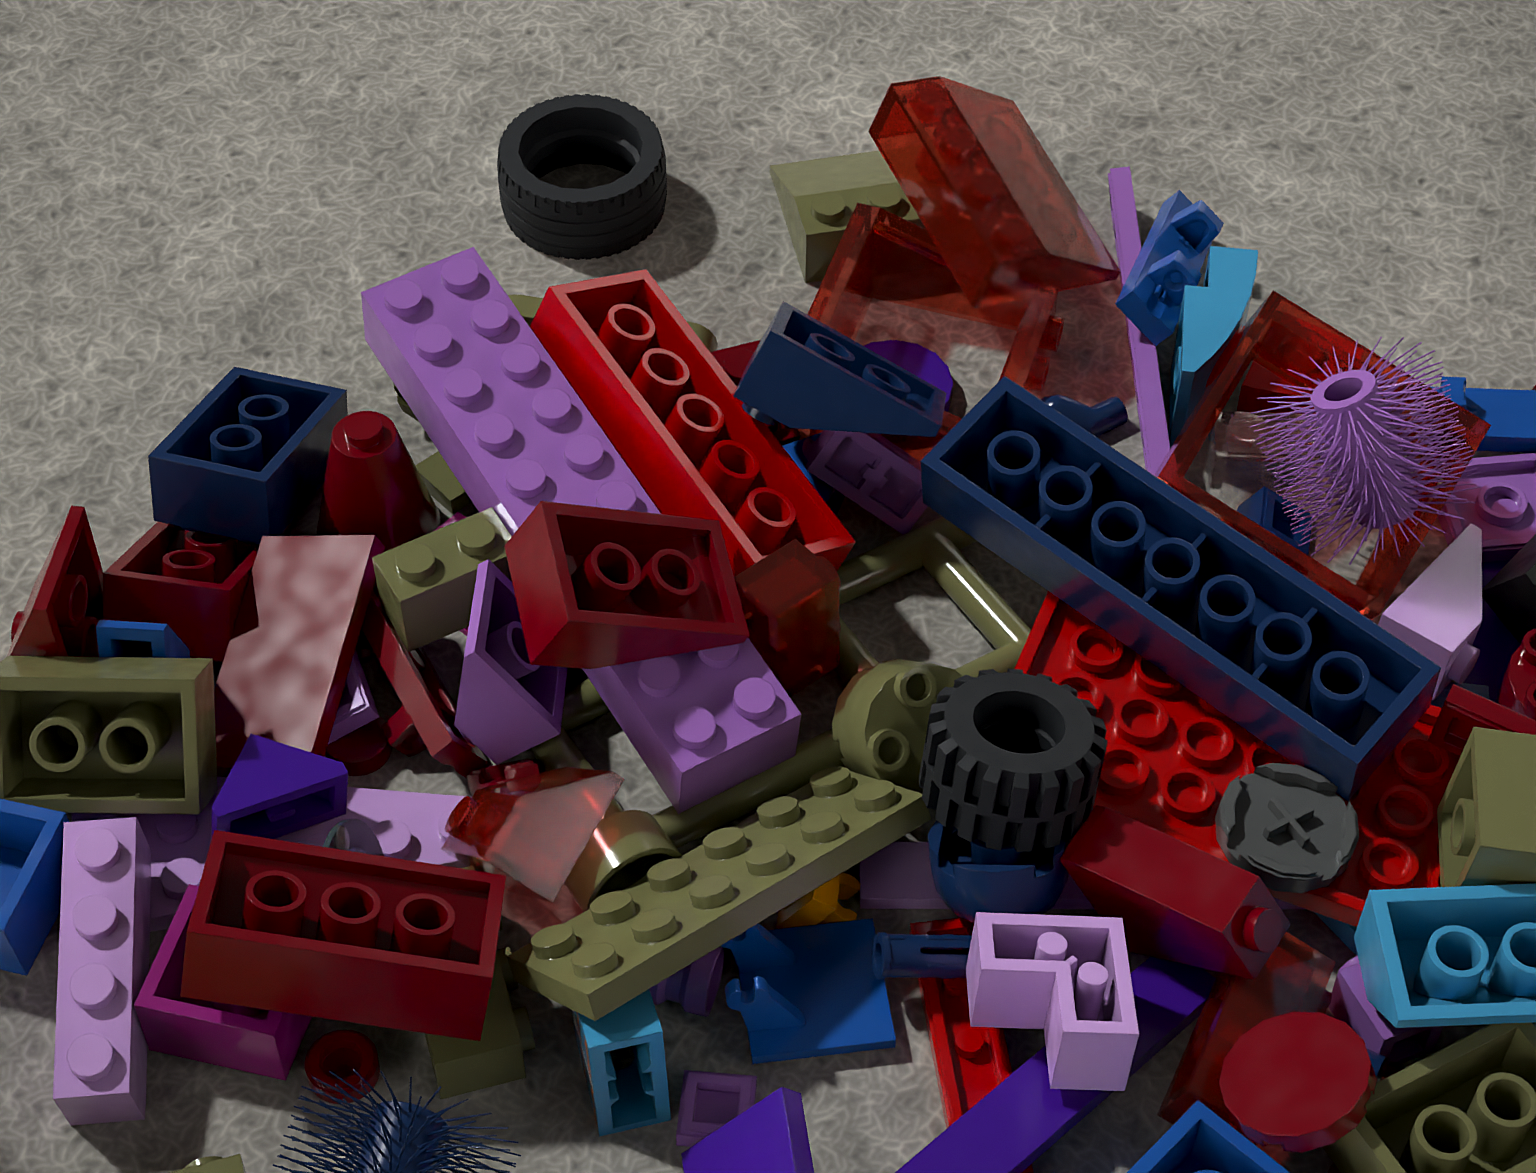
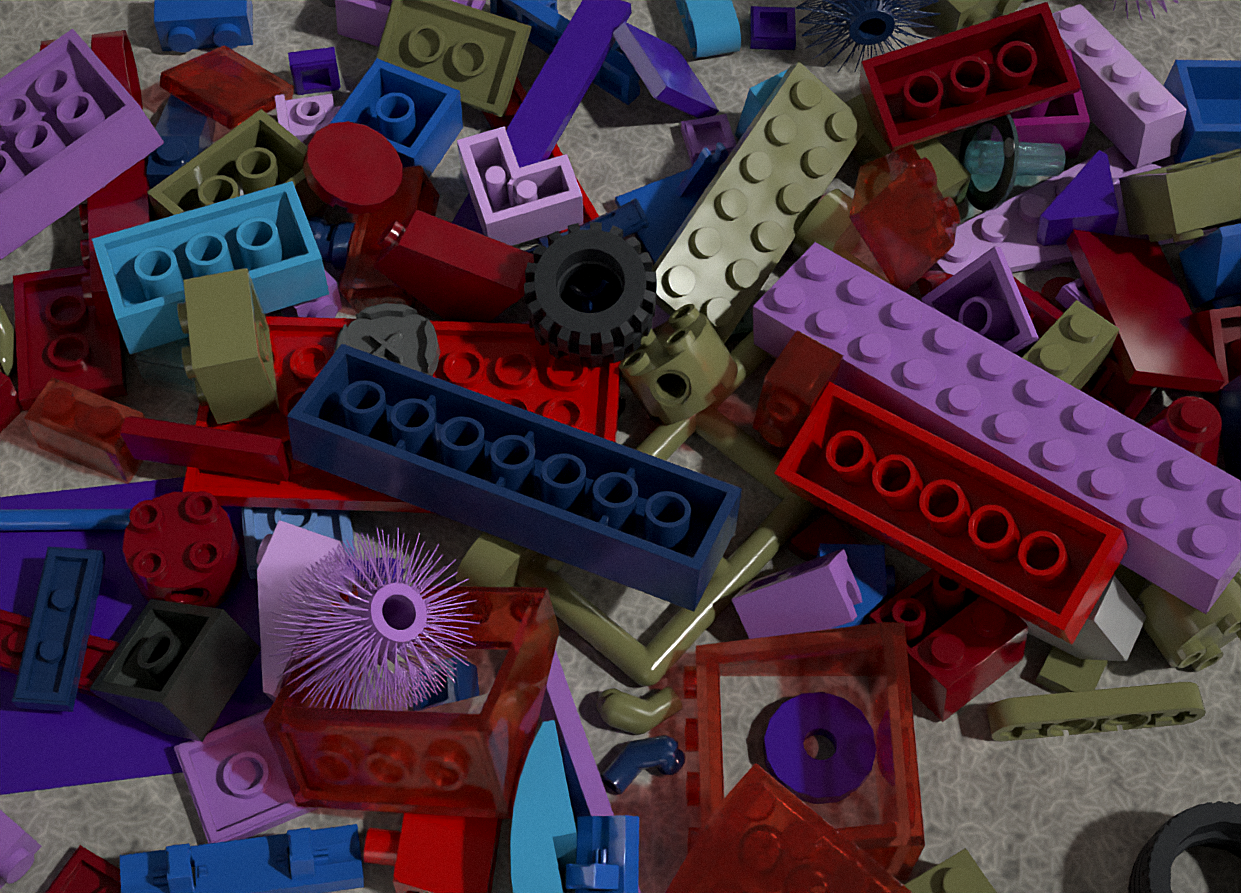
camera: 160 degrees right, 10 degrees up
(621, 586) = (913, 302): dark red slope -> none
(829, 382) = (838, 572): dark blue slope -> none

